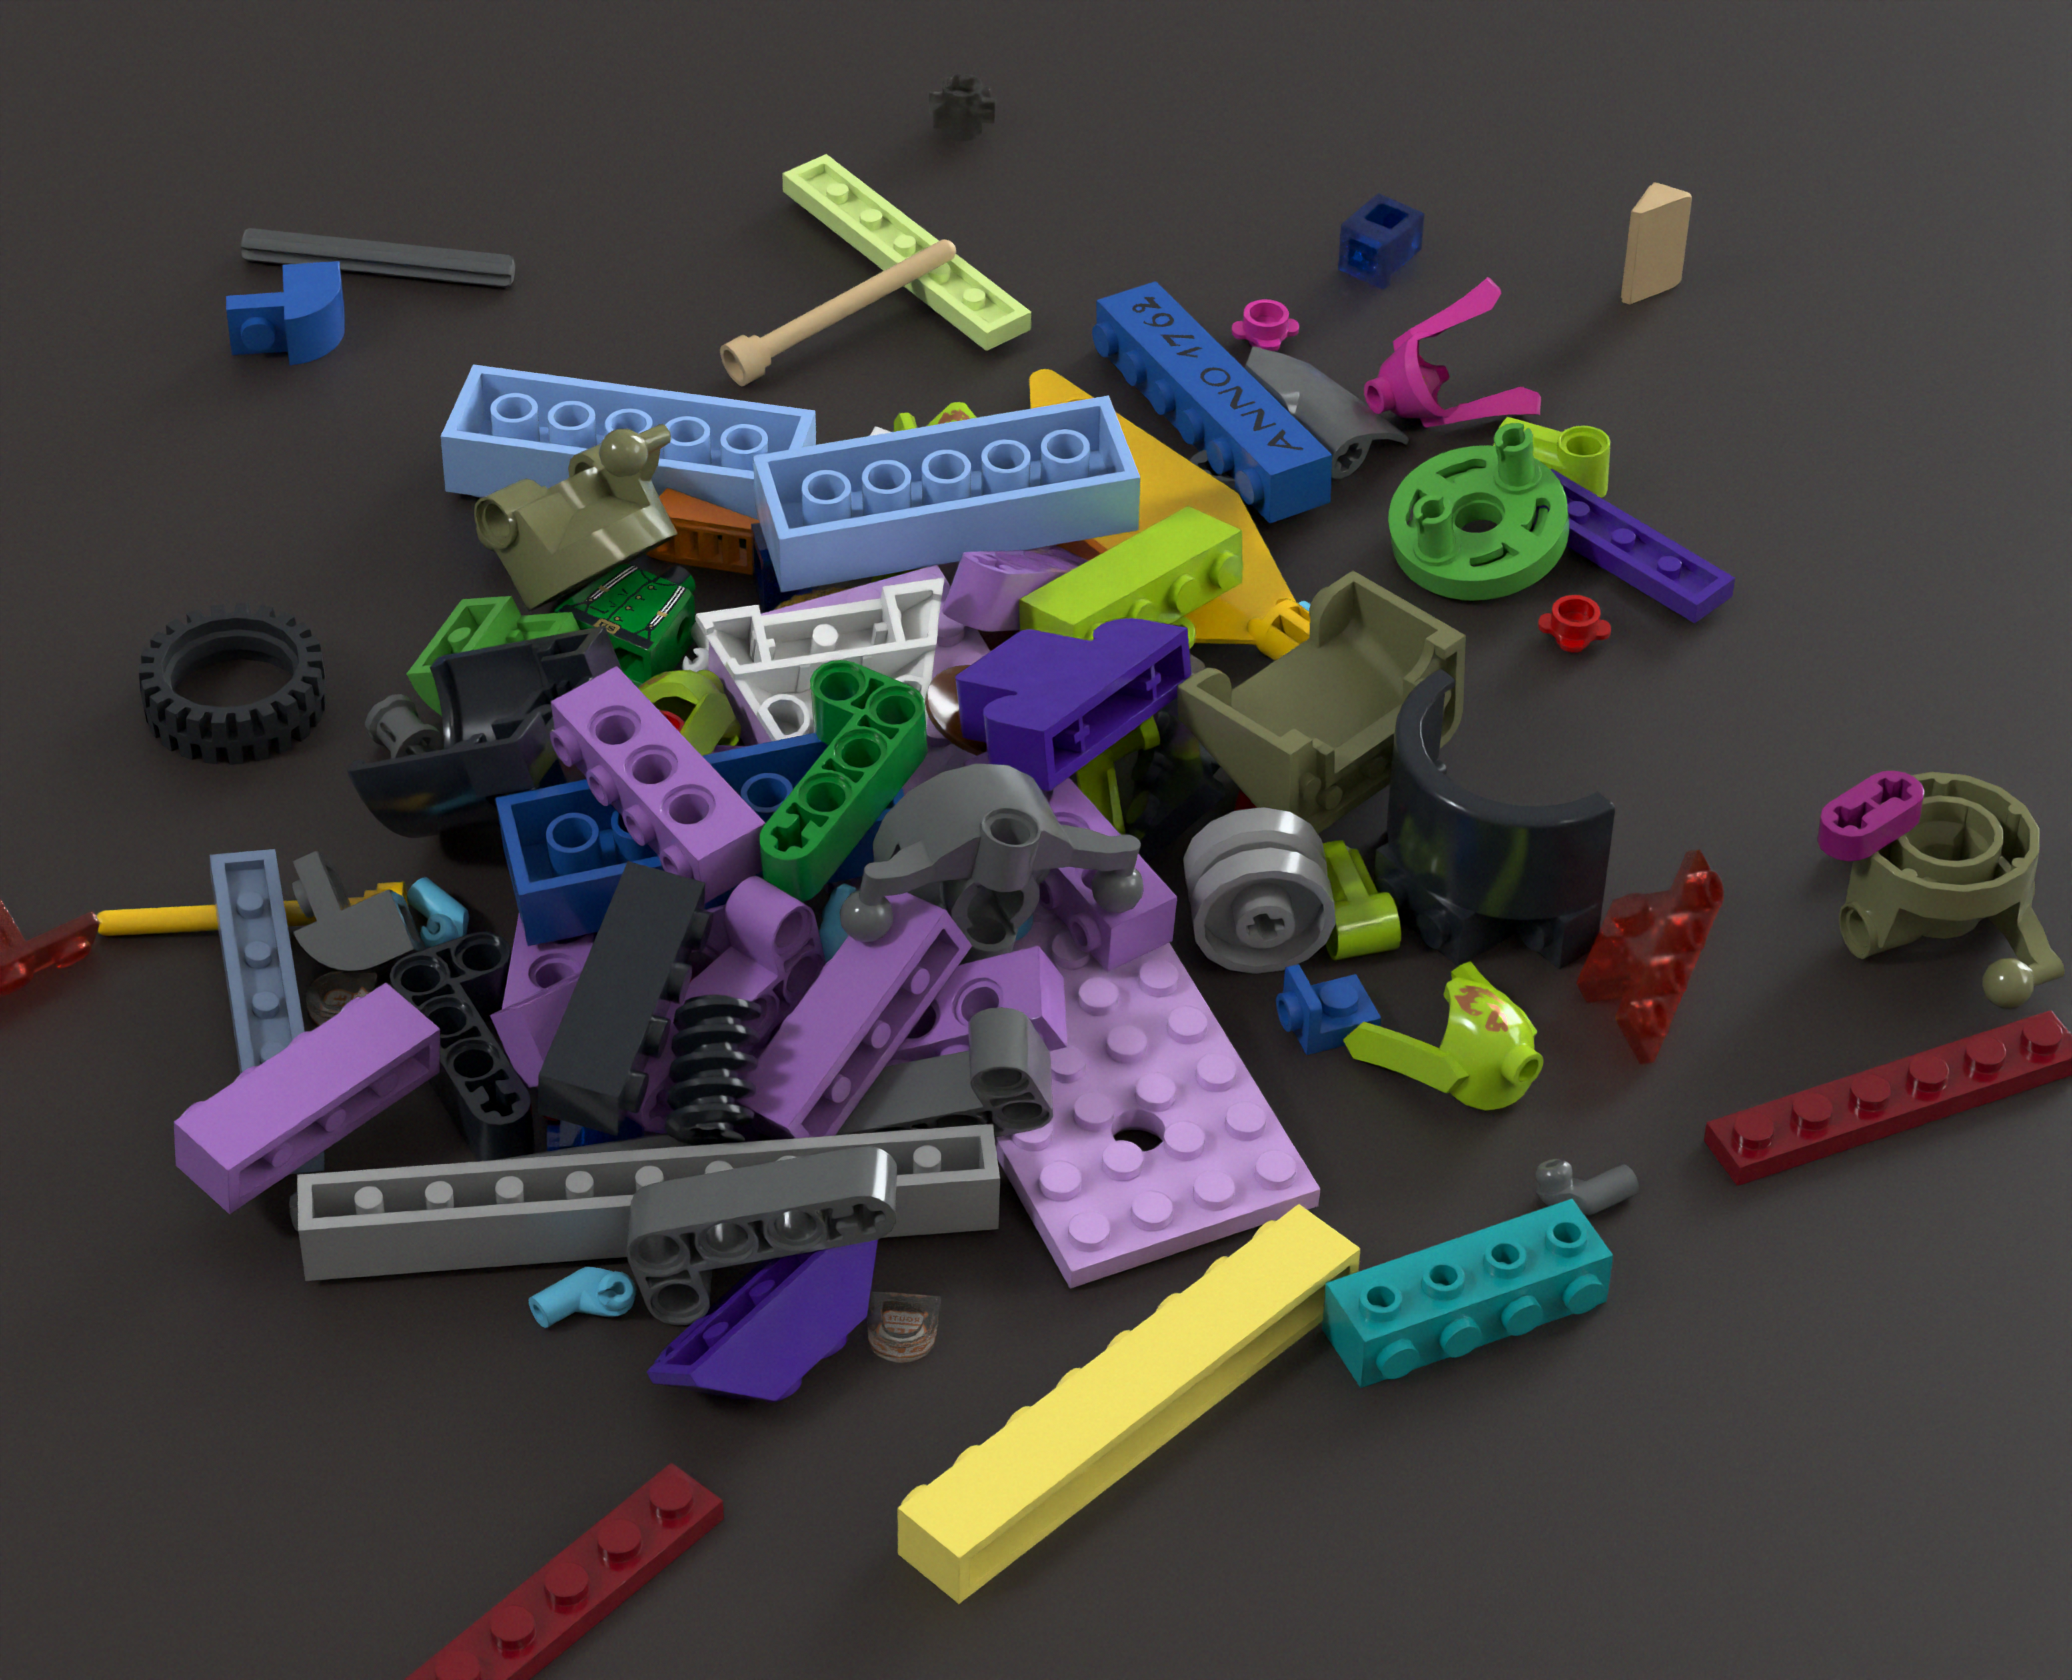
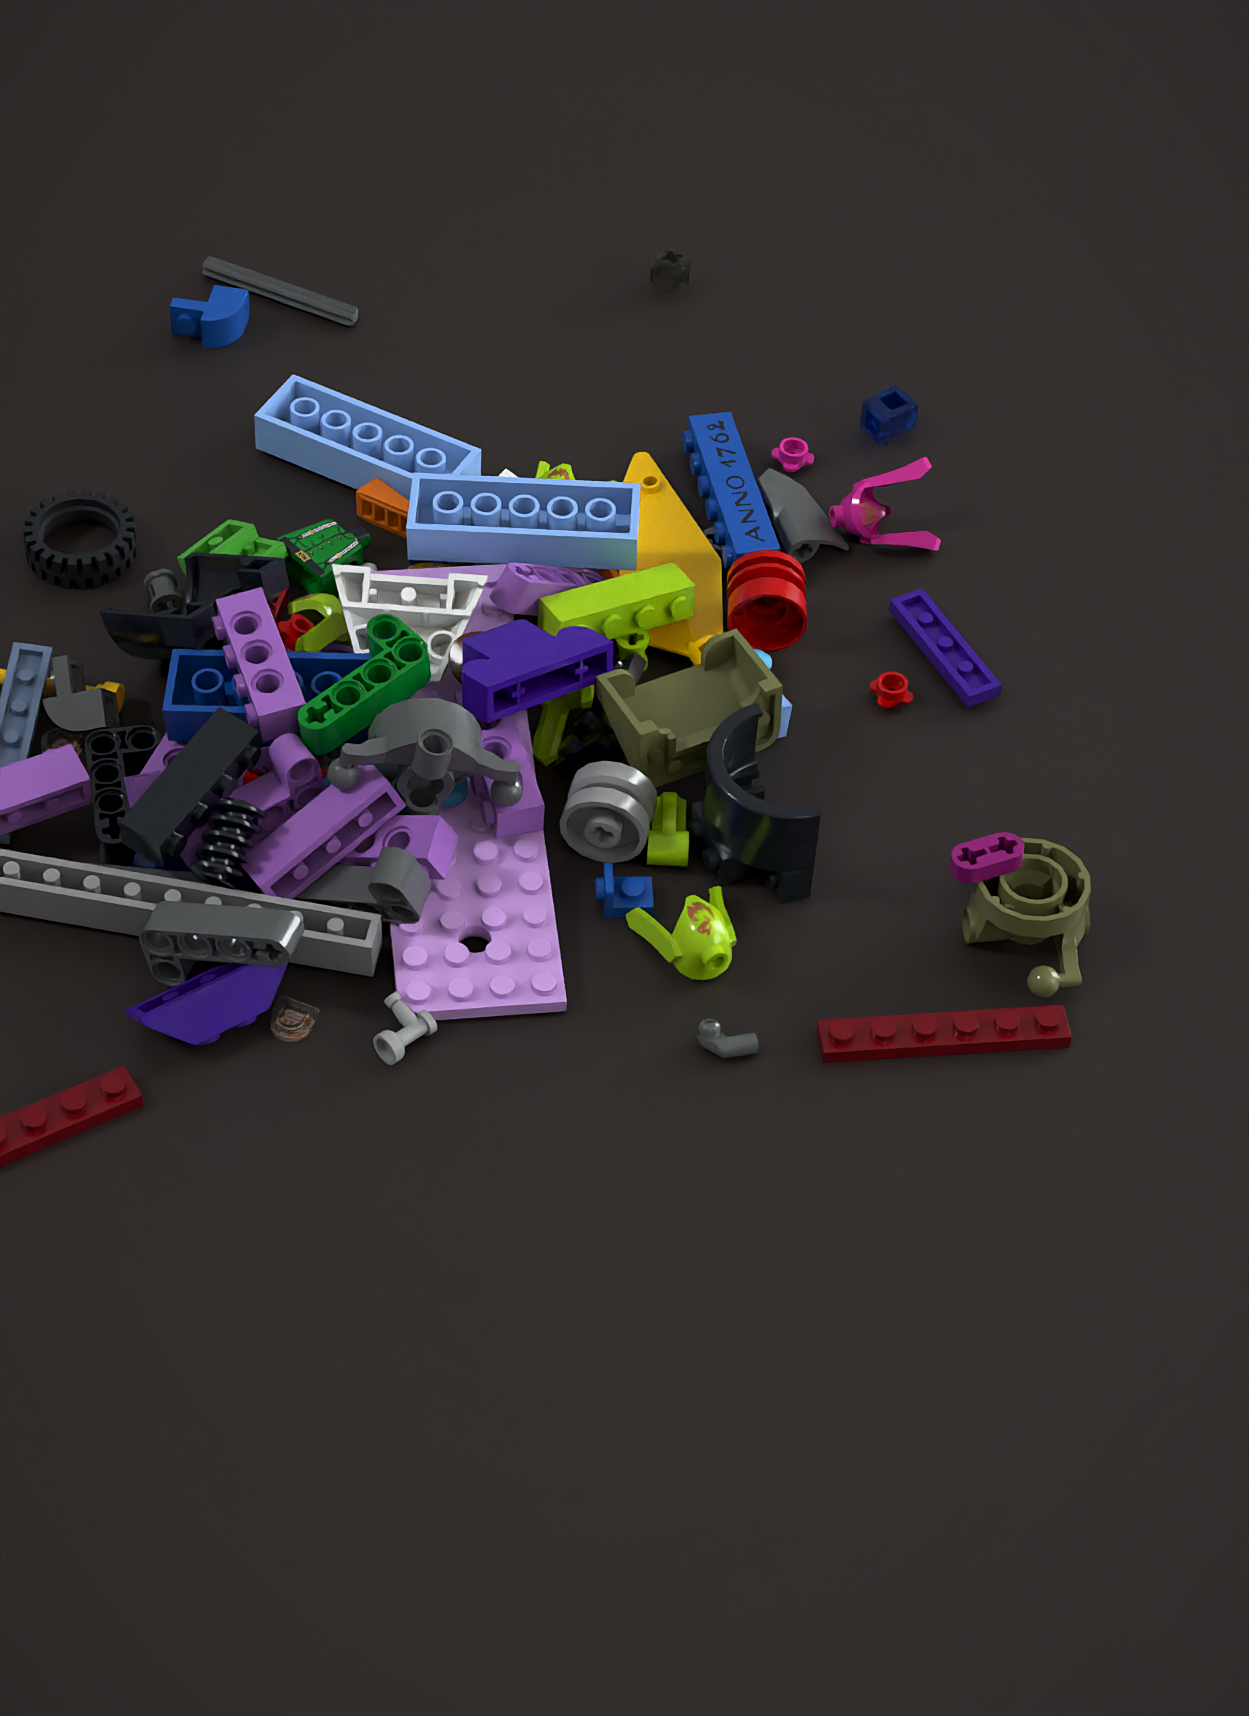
camera: 15 degrees right, 5 degrees up
(445, 915) = (141, 708): medium azure arm -> none
(582, 525) = (306, 490): olive piece -> none
(587, 1292) = (121, 953): medium azure arm -> none
(749, 356) = (469, 404): tan piece -> none
(890, 236) = (595, 358): yellowish green plate -> none
(1080, 1323) = (392, 1045): none -> light grey piece
(1122, 1404) = (396, 1098): light yellow brick -> none
(1341, 519) = (767, 599): none -> red wheel
(1466, 1293) = (623, 1085): teal brick -> none
(1480, 484) = (860, 587): bright green piece -> none
(1576, 453) = (939, 582): lime piece -> none
(1651, 951) = (836, 908): clear red bracket -> none
(1656, 242) = (1054, 456): tan slope -> none

